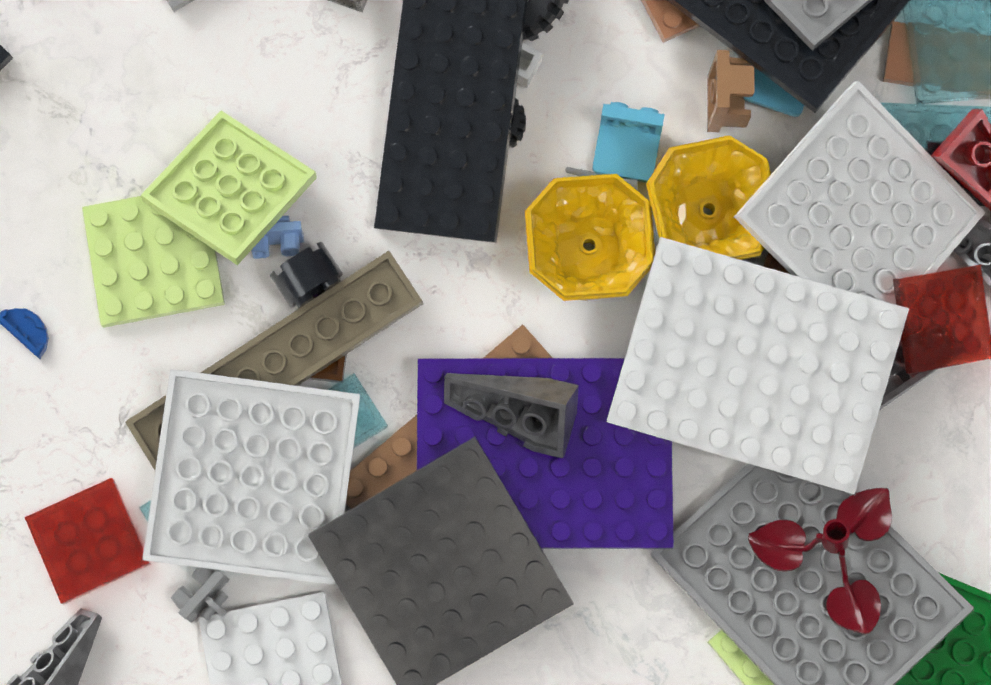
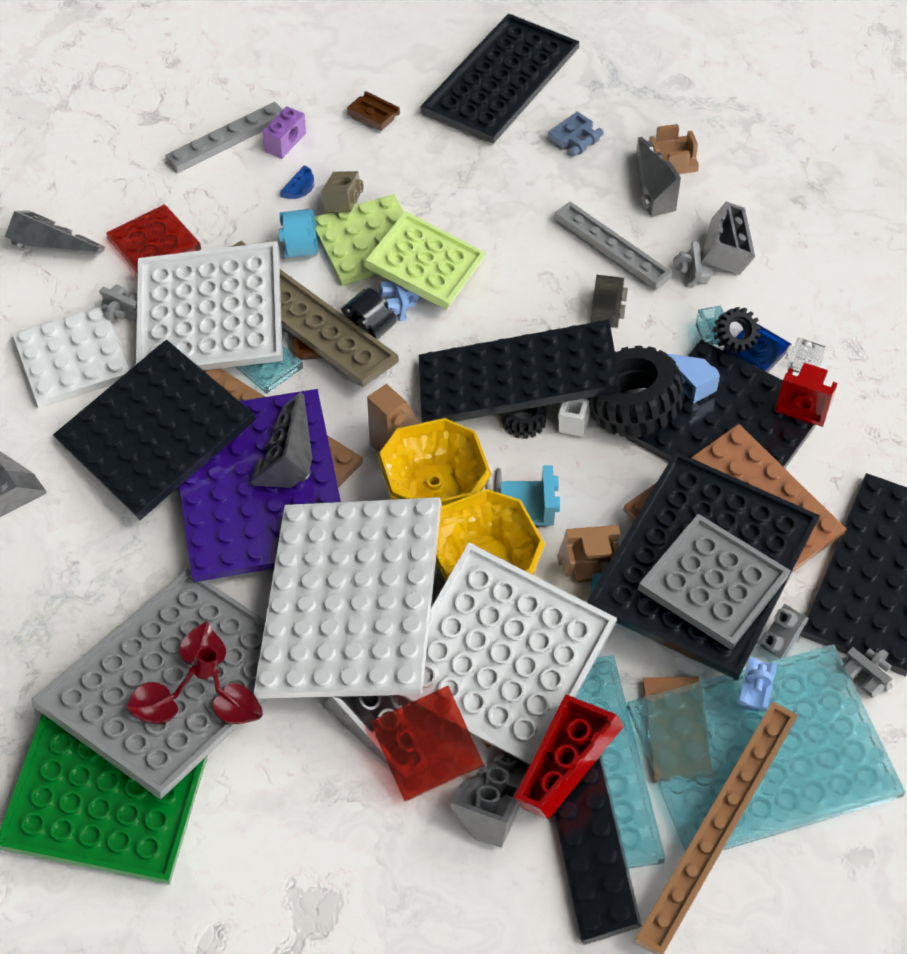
camera: 75 degrees right, 25 degrees down
(56, 268) = (342, 191): none -> dark tan brick
(140, 340) = (298, 233): none -> medium azure brick
(500, 275) = (386, 414): none -> medium nougat wedge

